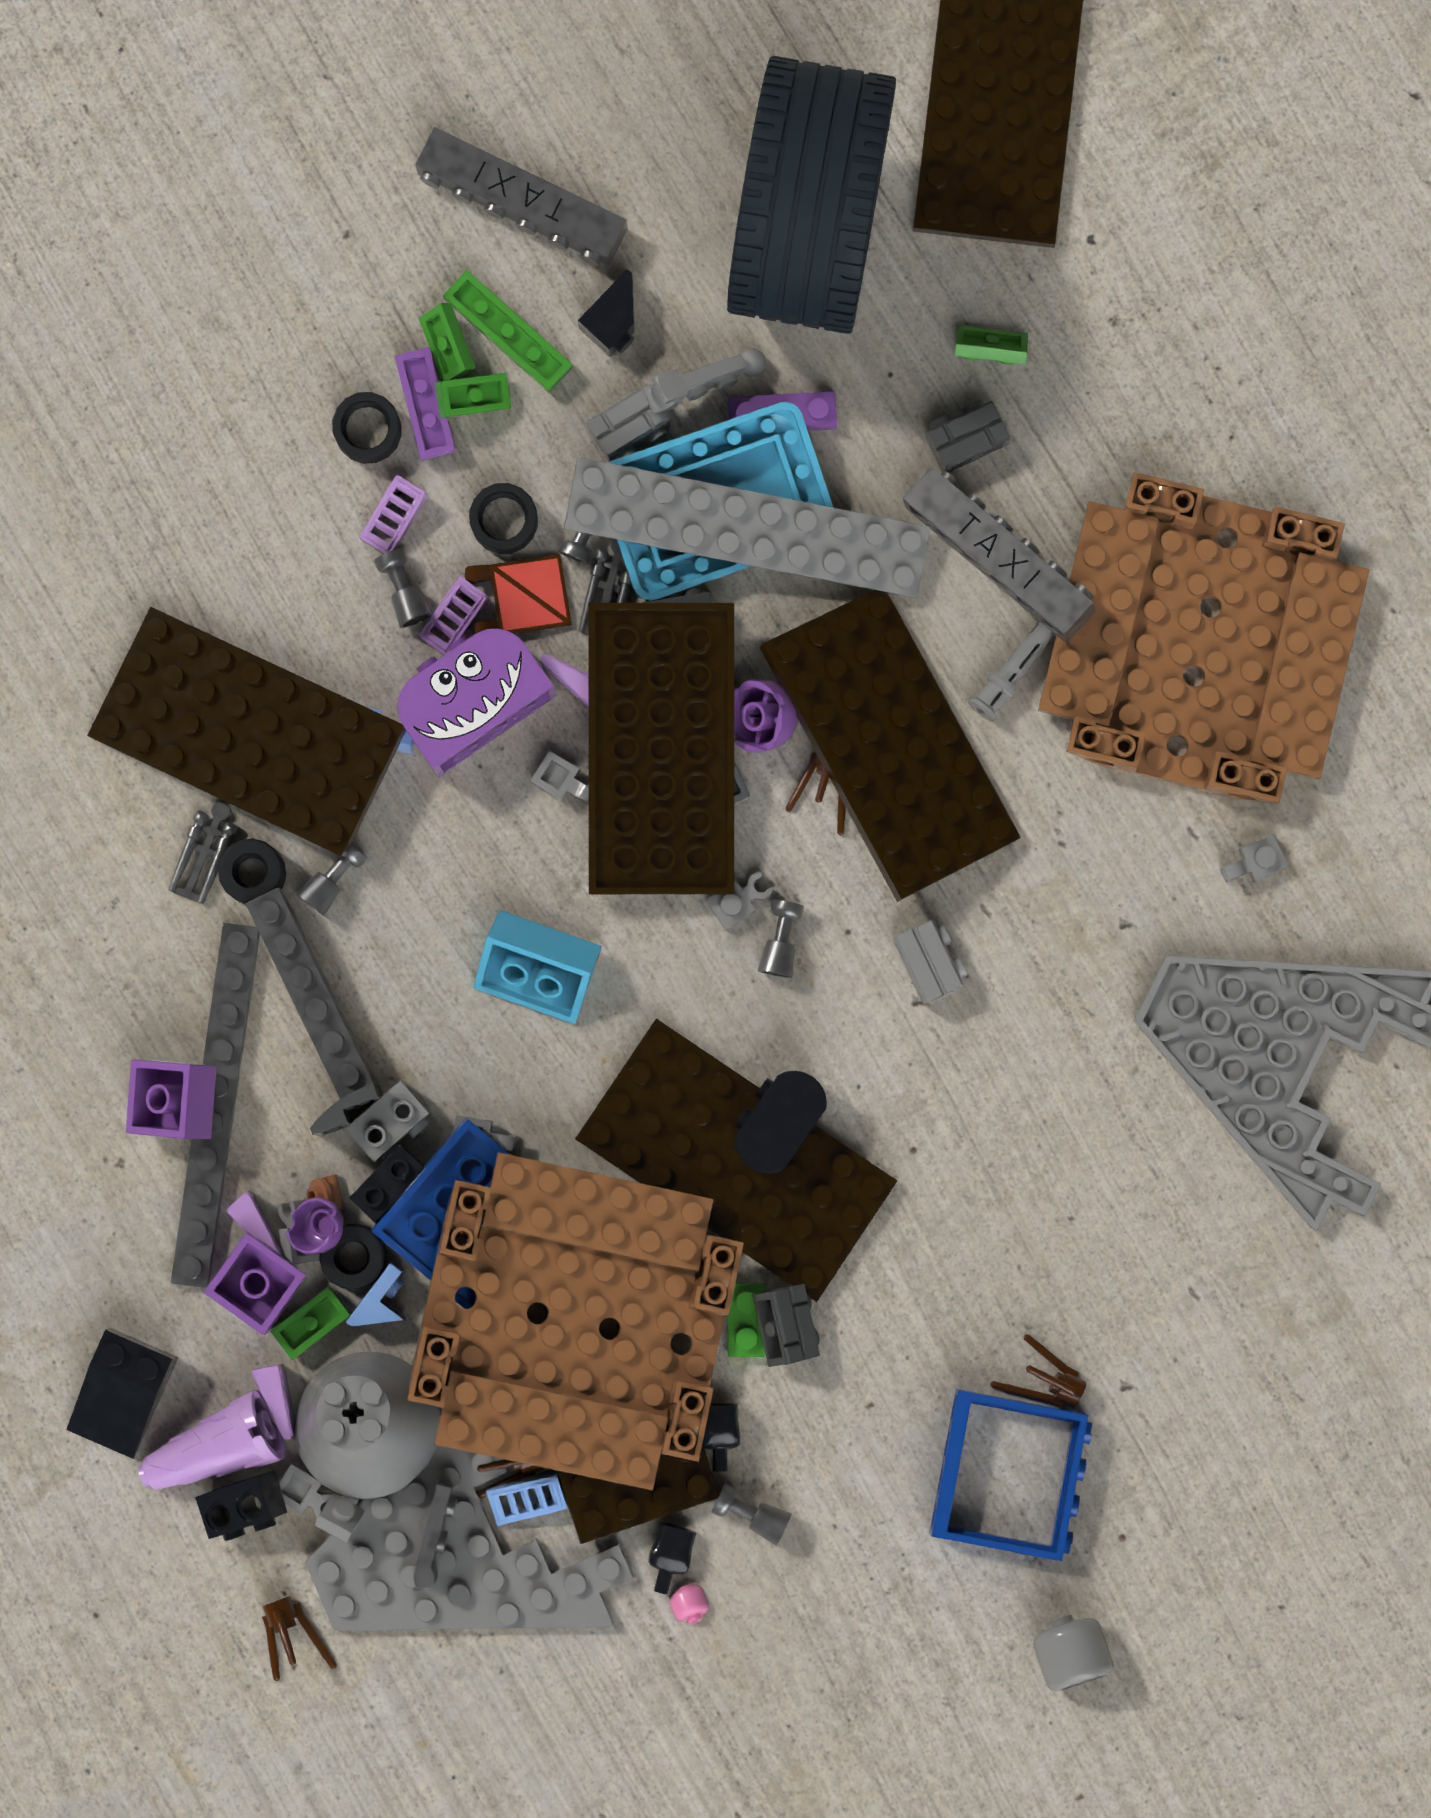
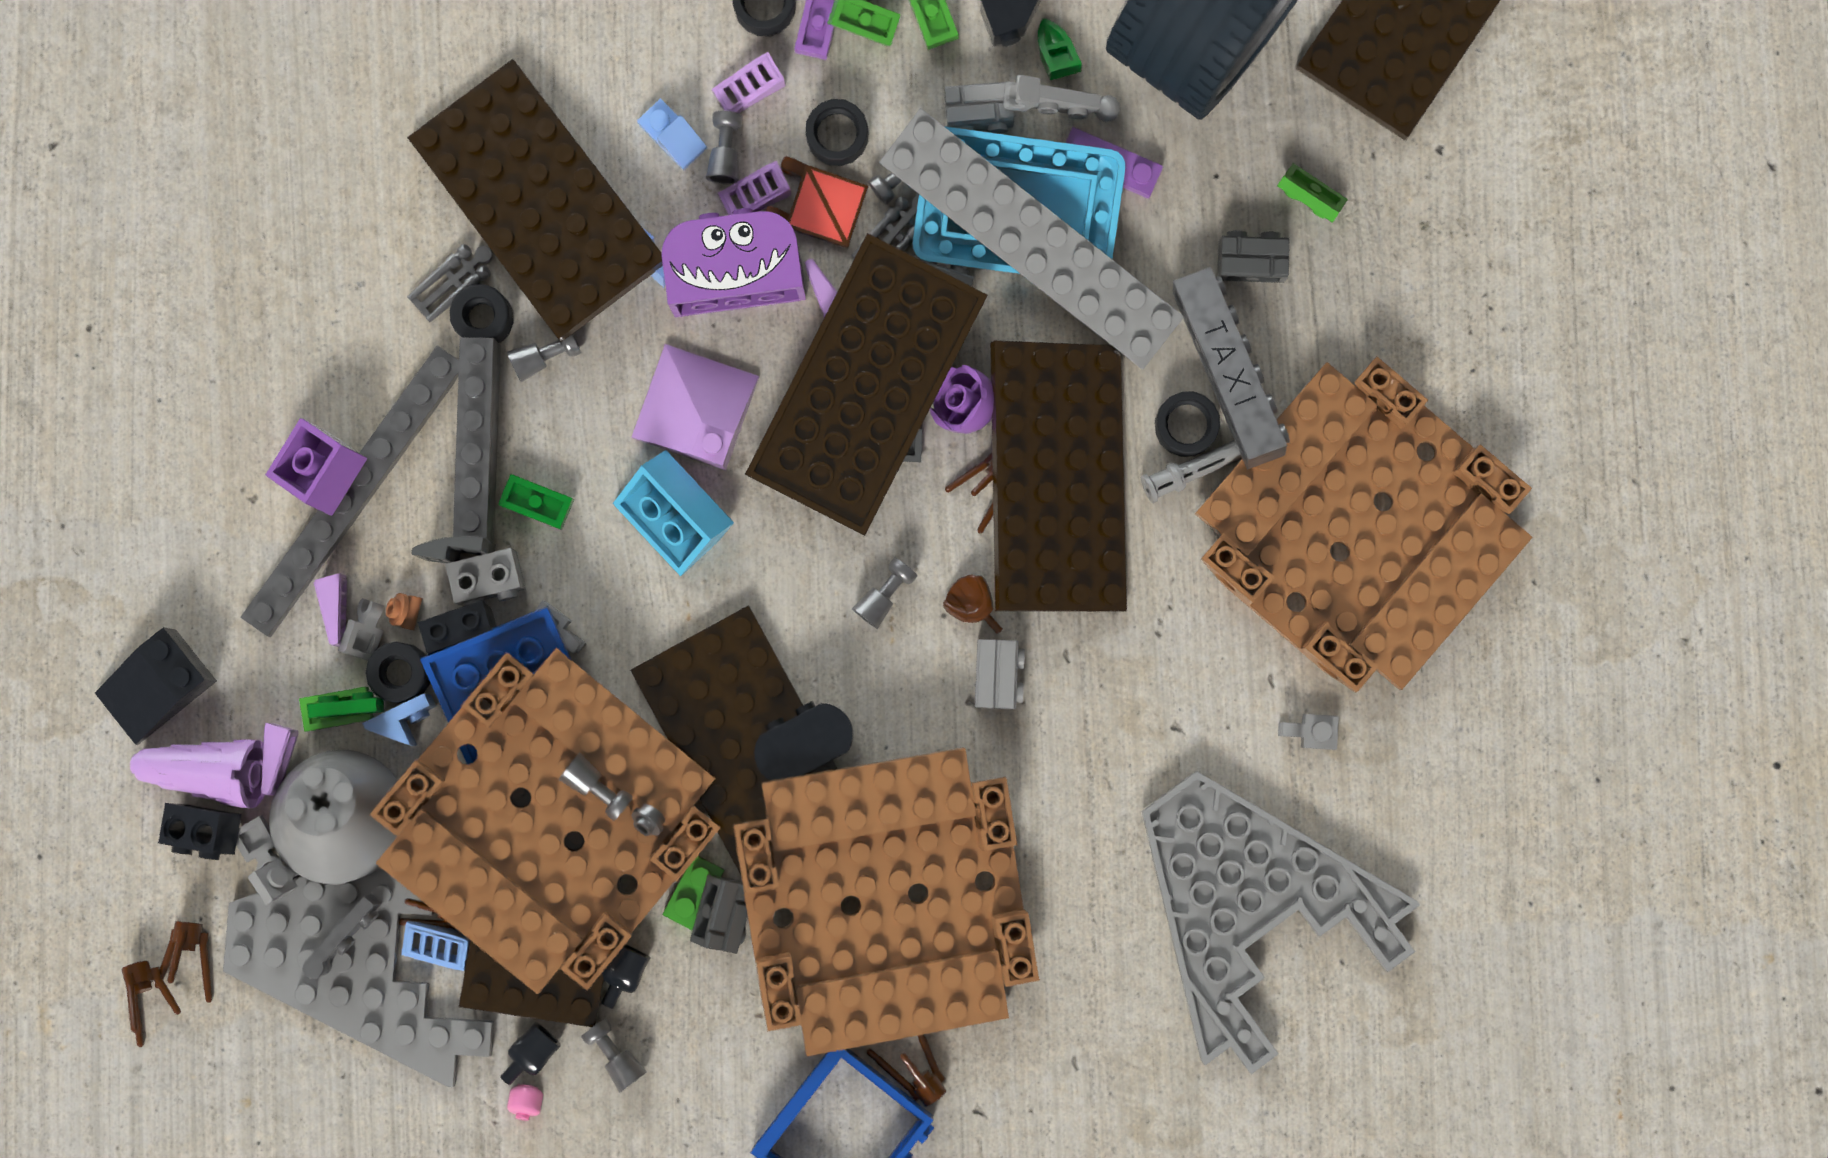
camera: 30 degrees right, 0 degrees up
(255, 1284) = (304, 654): medium lavender slope -> none
(257, 1681) = (138, 980): none -> reddish brown plant
(313, 1223) = (378, 632): medium lavender hair -> none
(335, 1304) = (331, 706): none -> green plate
(343, 601) = (672, 134): none -> light blue slope
(399, 1024) = (536, 502): none -> green plate
(504, 854) = (695, 407): none -> lavender slope
(559, 778) = (771, 367): light grey plate -> none
(591, 1262) = (585, 777): none -> flat silver piece
(671, 1271) = (648, 820): none -> flat silver plate
(675, 331) = (1057, 51): none -> green plate
(735, 907) = (863, 548): light grey plate -> none
(868, 904) = (971, 601): none -> reddish brown piece
(974, 1283) = (895, 961): none -> medium nougat slope
(991, 601) = (1210, 413): none -> black tyre

